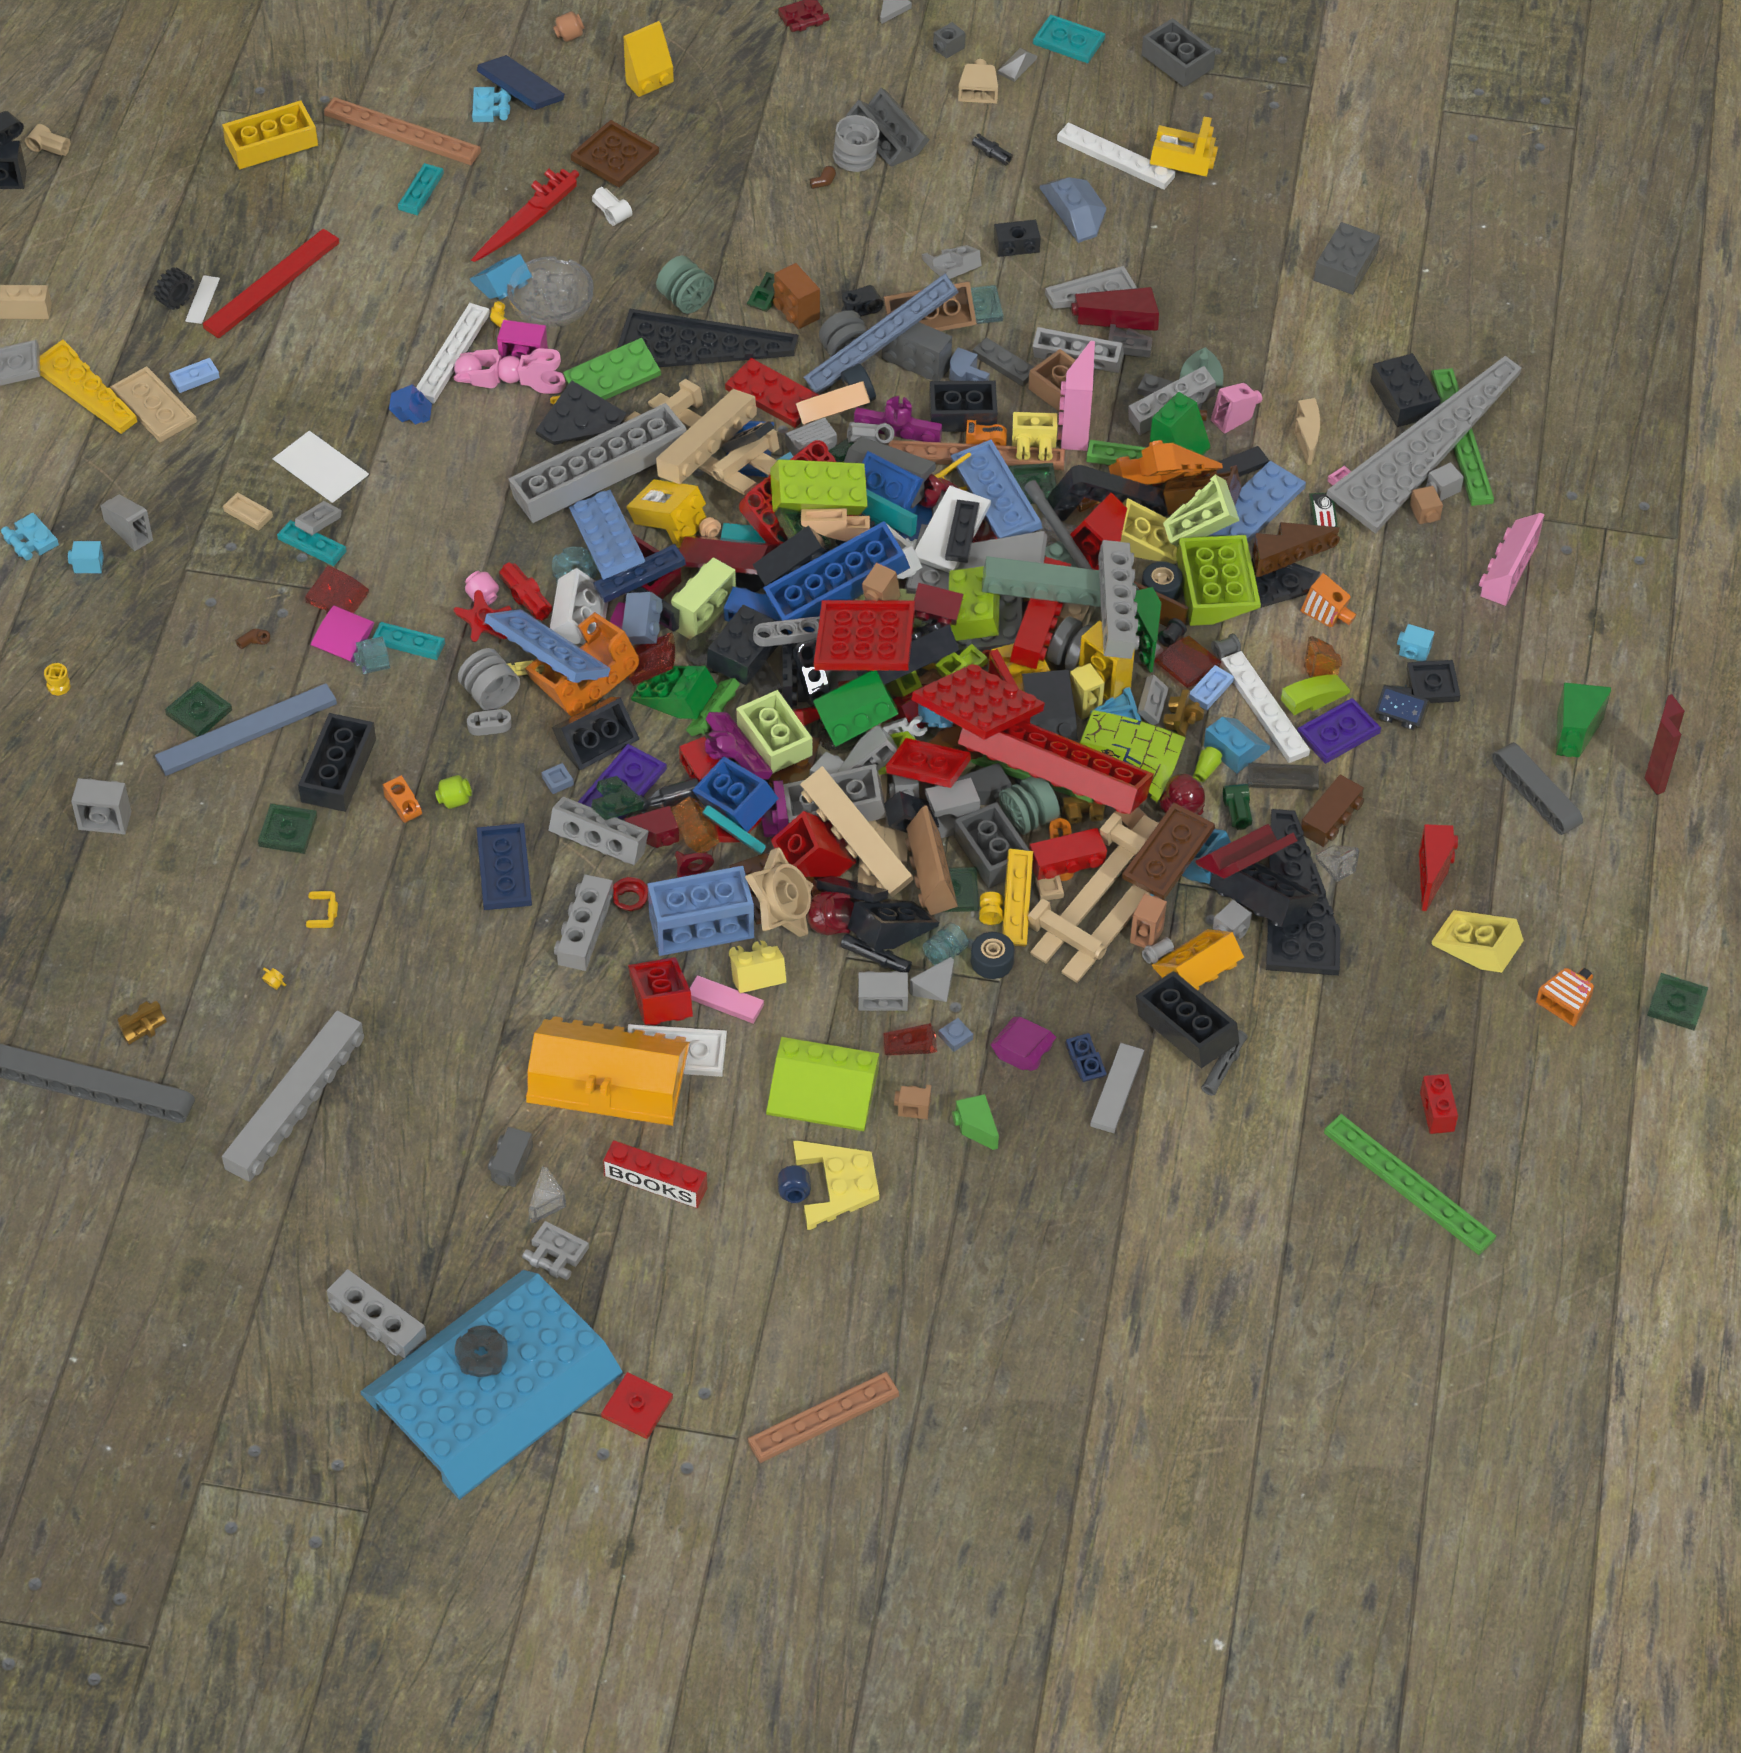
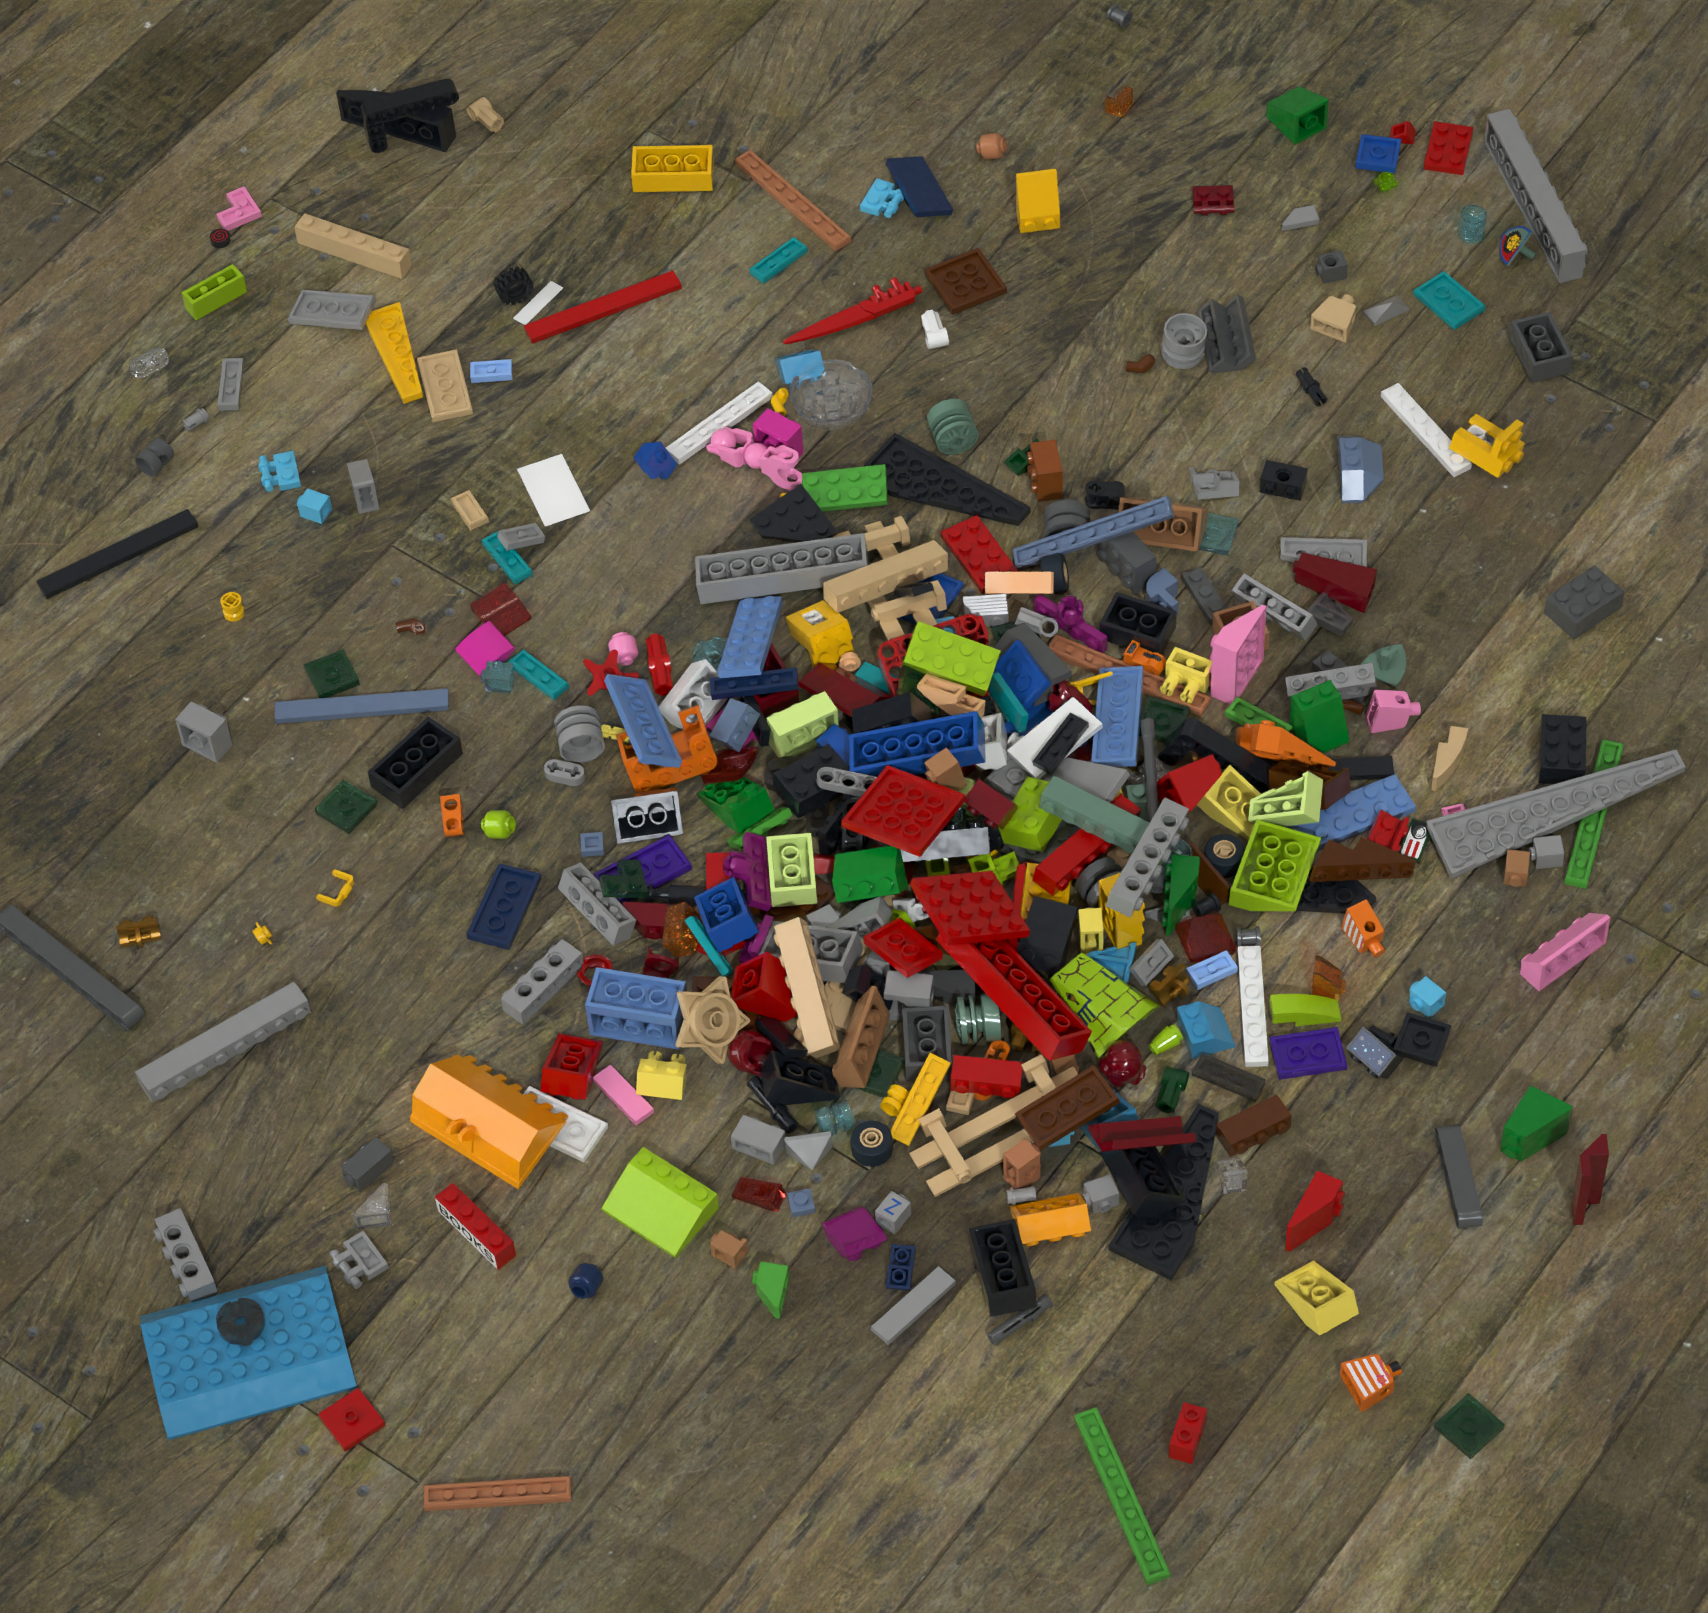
camera: 30 degrees right, 0 degrees up
(848, 1178) = (636, 1294): light yellow wing -> none
(1050, 1009) = (893, 1212): none -> light grey brick
(1296, 509) = (1388, 830): none -> red bracket

